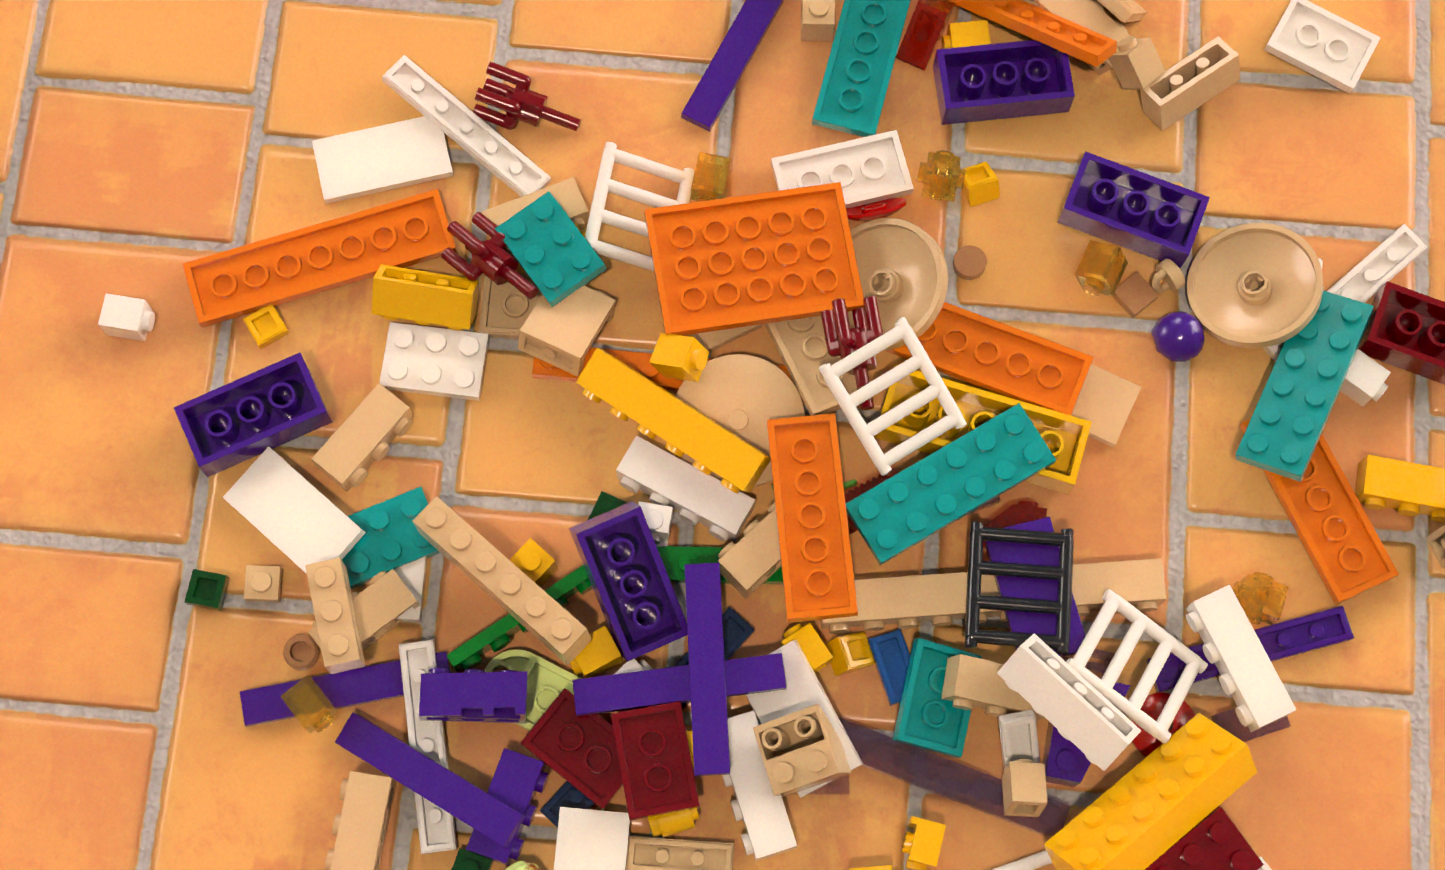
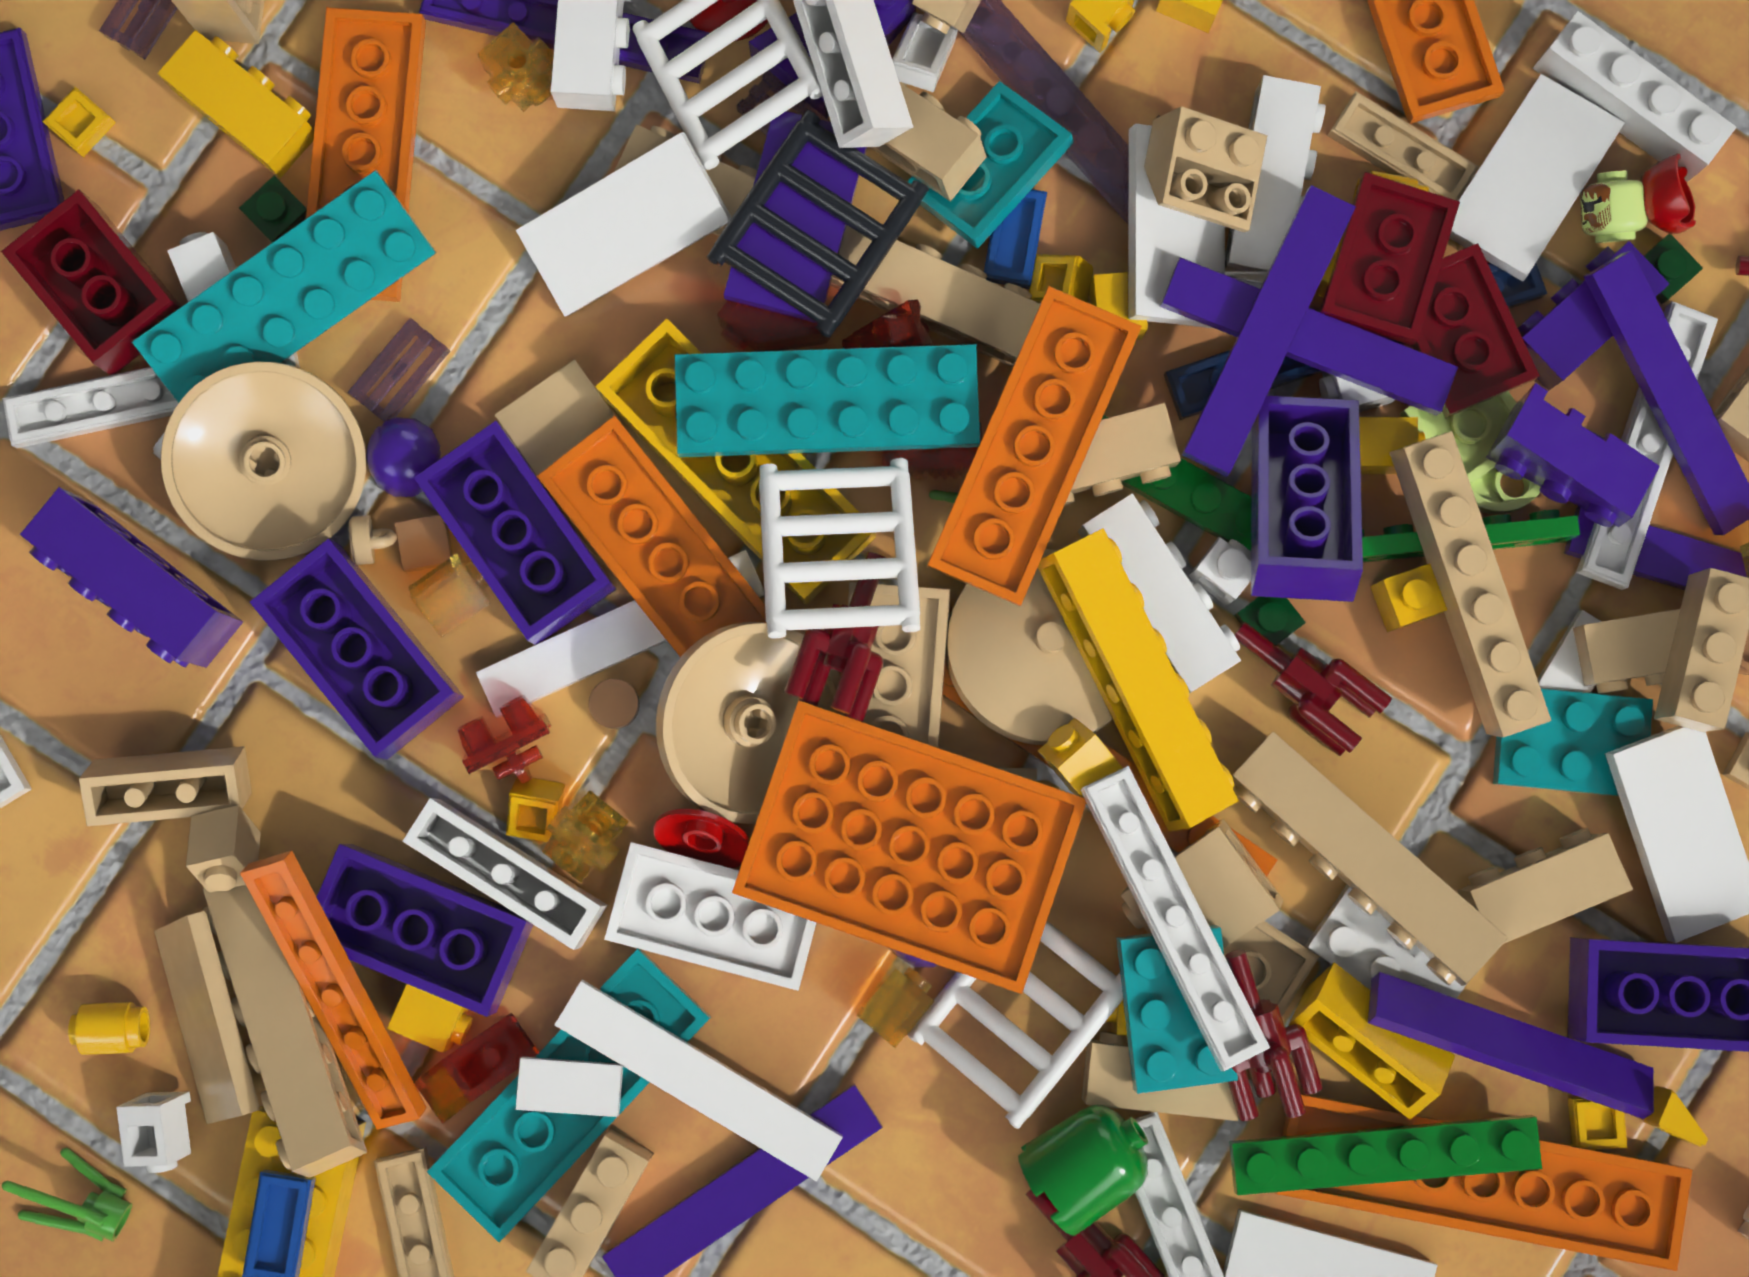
camera: 150 degrees left, 10 degrees up
(223, 345) = (1674, 1118): none -> yellow slope
(342, 334) = (1511, 1045): none -> dark purple tile
(385, 238) = (1385, 1155): none -> green plate
(481, 392) = (1368, 860): none -> tan brick
(557, 141) = (1086, 1165): none -> green cylinder
(561, 480) = (1316, 688): none -> dark red plant
(581, 289) = (1175, 919): none -> white tile
(799, 82) = (699, 1080): none -> white tile
(868, 42) = (569, 1086): none -> white tile
(934, 552) = (893, 329): none -> clear red hips
(974, 133) = (505, 873): none -> white brick
(1012, 274) = (582, 650): none -> white tile
(1013, 203) = (524, 727): none -> clear red hips
(1086, 319) = (515, 533): none -> dark purple brick
(1135, 534) = (624, 224): none -> white tile
(1217, 358) = (386, 358): none -> tile
(1284, 179) = (131, 579): none -> dark purple brick
(1348, 439) = (274, 209): none -> dark green plate

